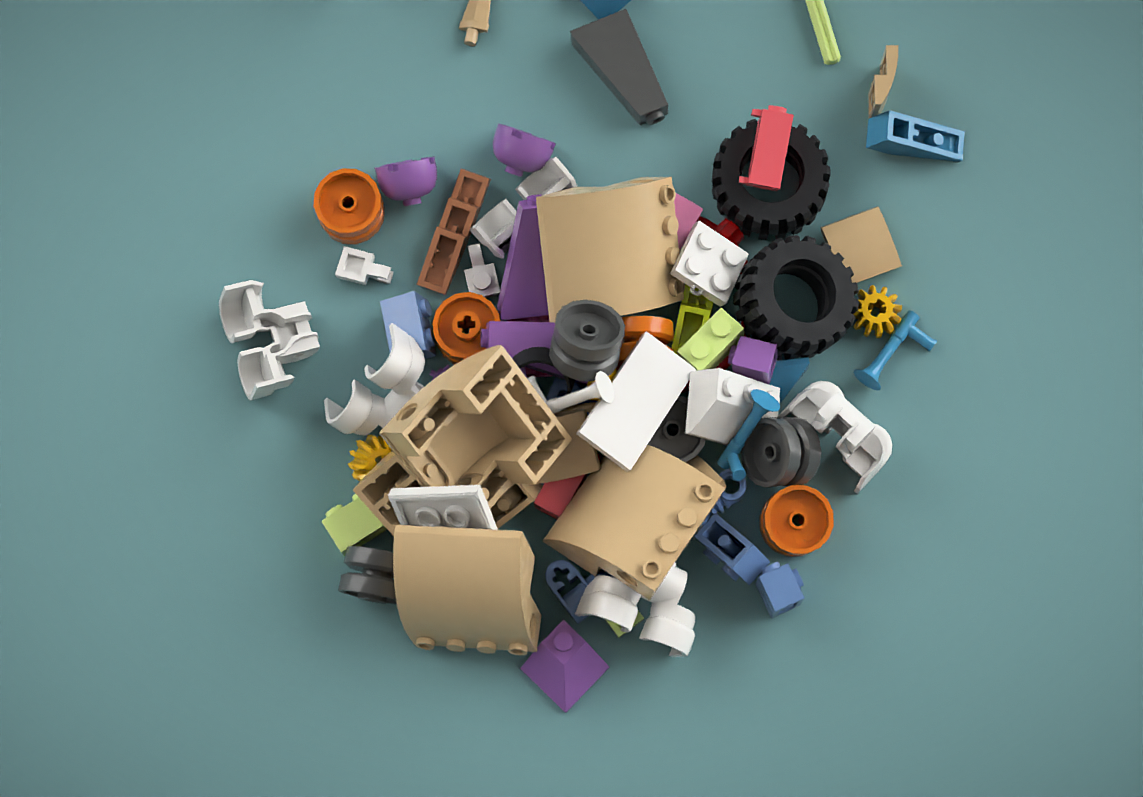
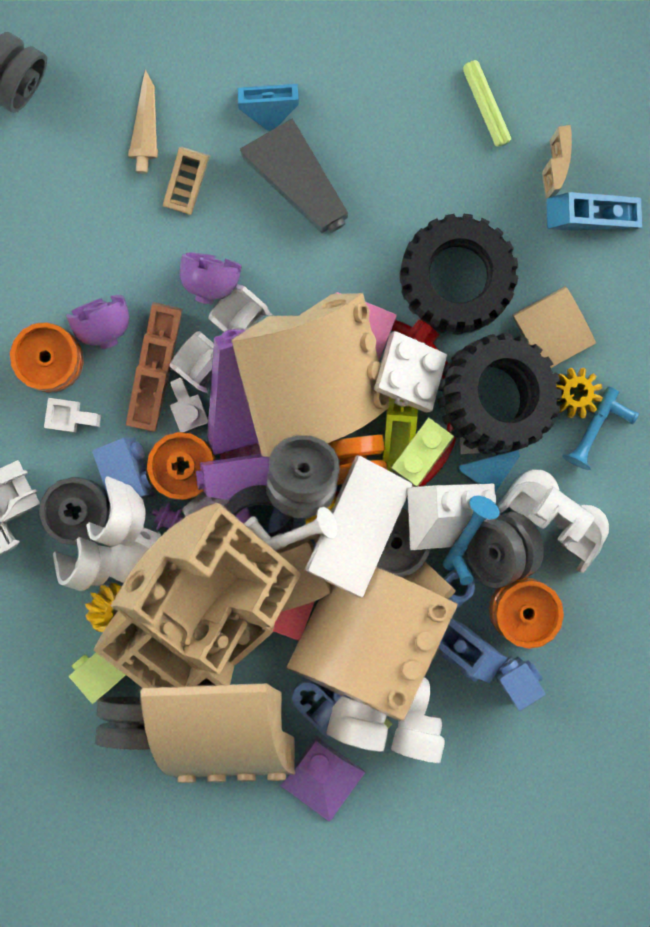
camera: 15 degrees left, 10 degrees up
(343, 345) = (58, 506): none -> dark grey wheel
(442, 507) = (186, 667): white tile -> none
(507, 42) = (175, 177): none -> tan slope
(754, 359) = (465, 463): medium lavender brick -> none
(769, 148) = (455, 250): coral brick -> none

